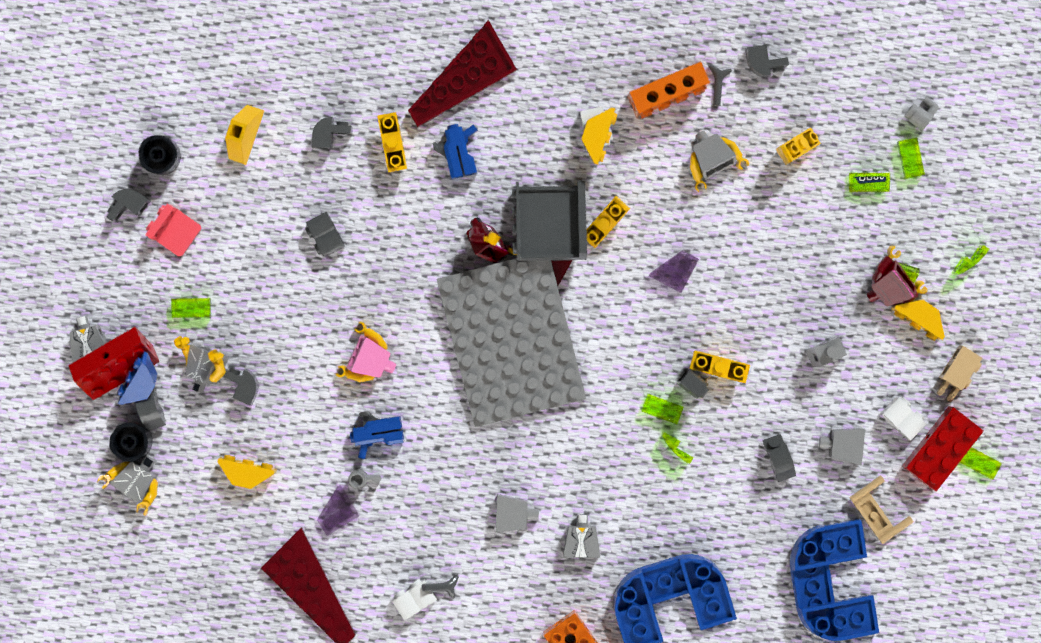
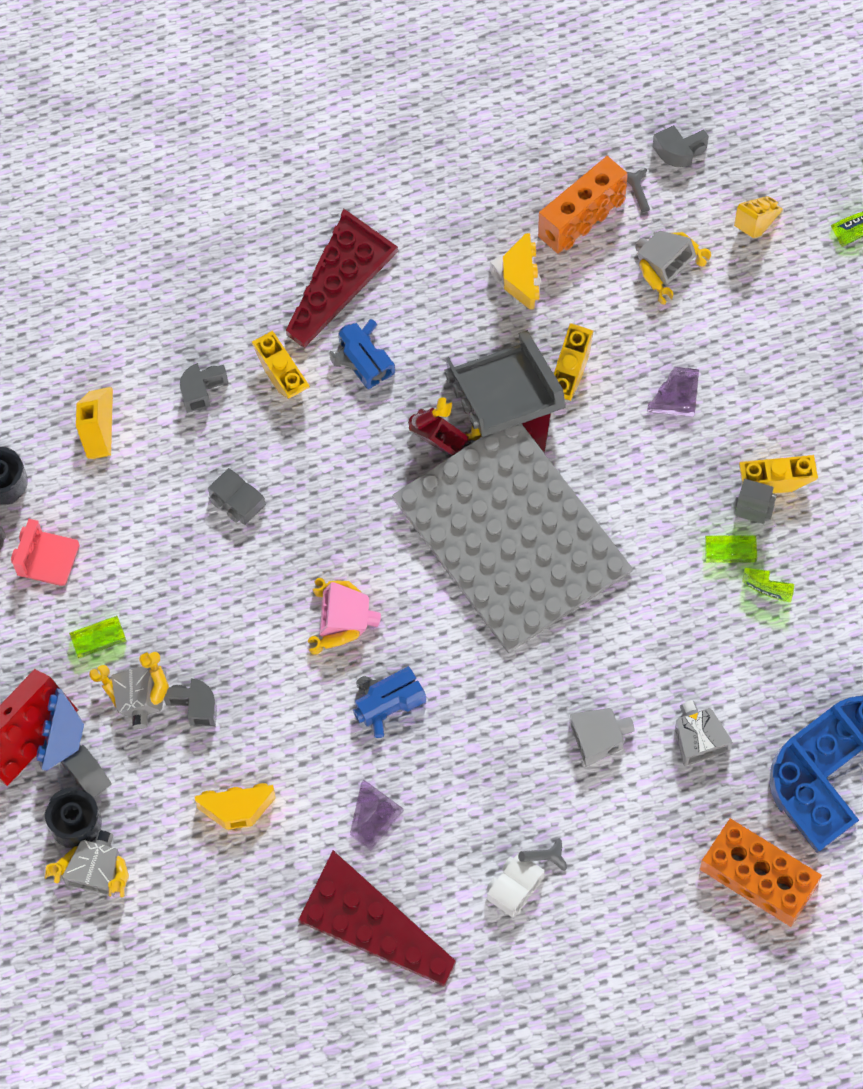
camera: 15 degrees left, 25 degrees down
(359, 478) = (386, 763): light grey piece -> none

